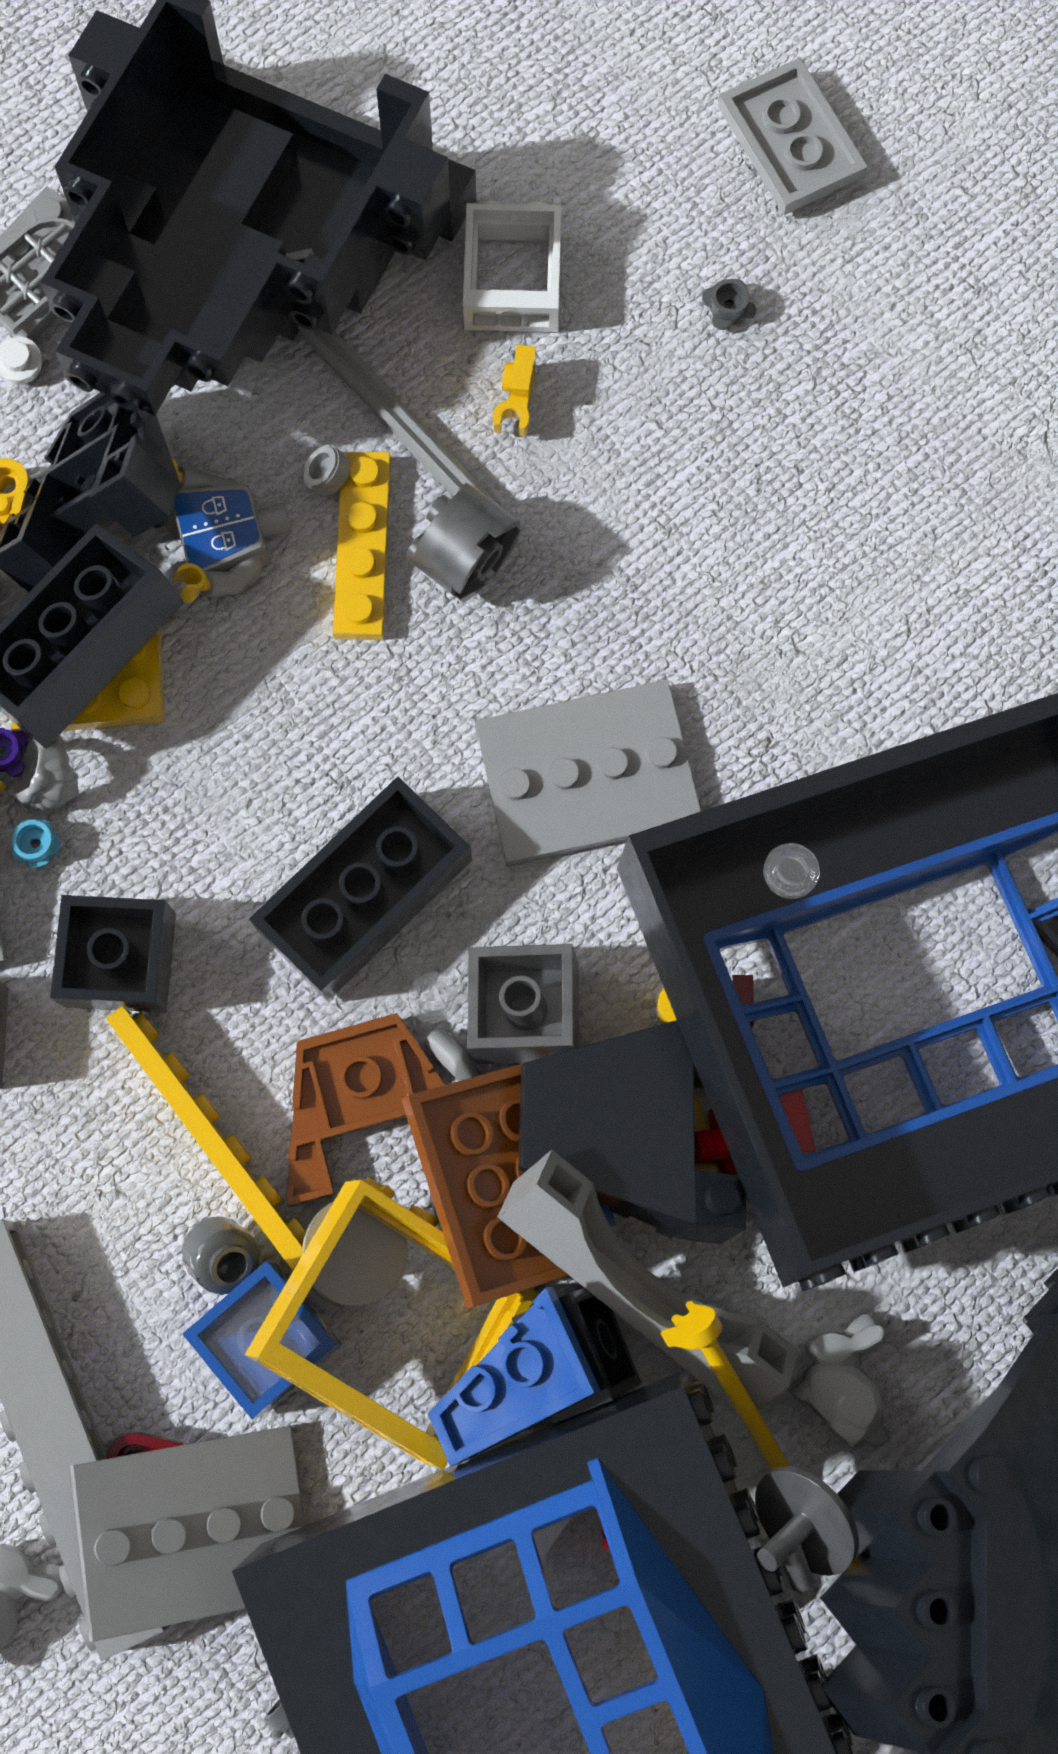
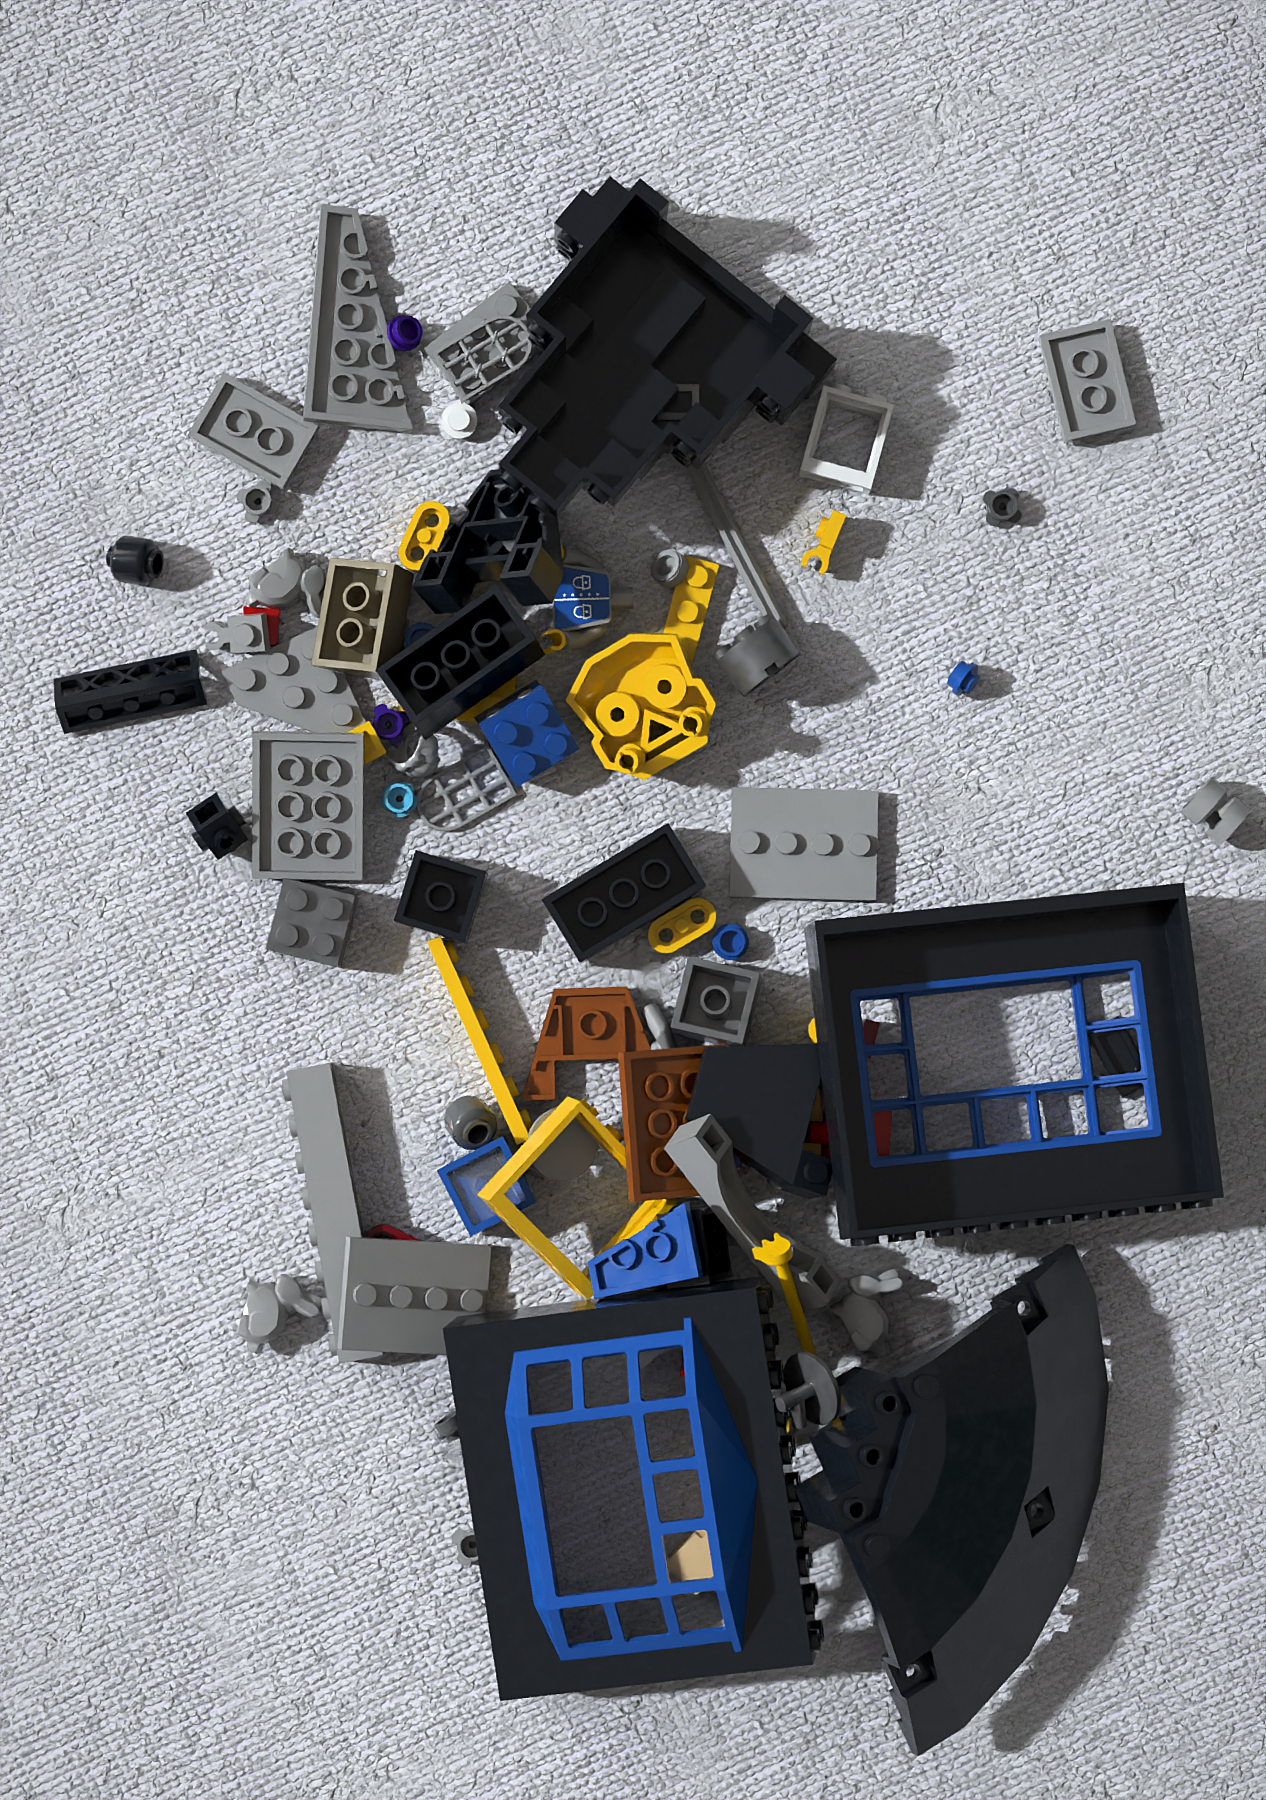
camera: 15 degrees right, 10 degrees up
(140, 813) = (469, 776): none -> light grey window
(184, 711) = (527, 733): none -> blue piece
(302, 608) = (629, 678): none -> yellow brick
(450, 916) = (682, 927): none -> yellow plate
(522, 921) = (730, 942): none -> blue plate
(739, 514) = (963, 678): none -> blue plate
(791, 871) = (915, 973): clear plate -> none
(941, 1256) = (957, 1244): none -> clear piece

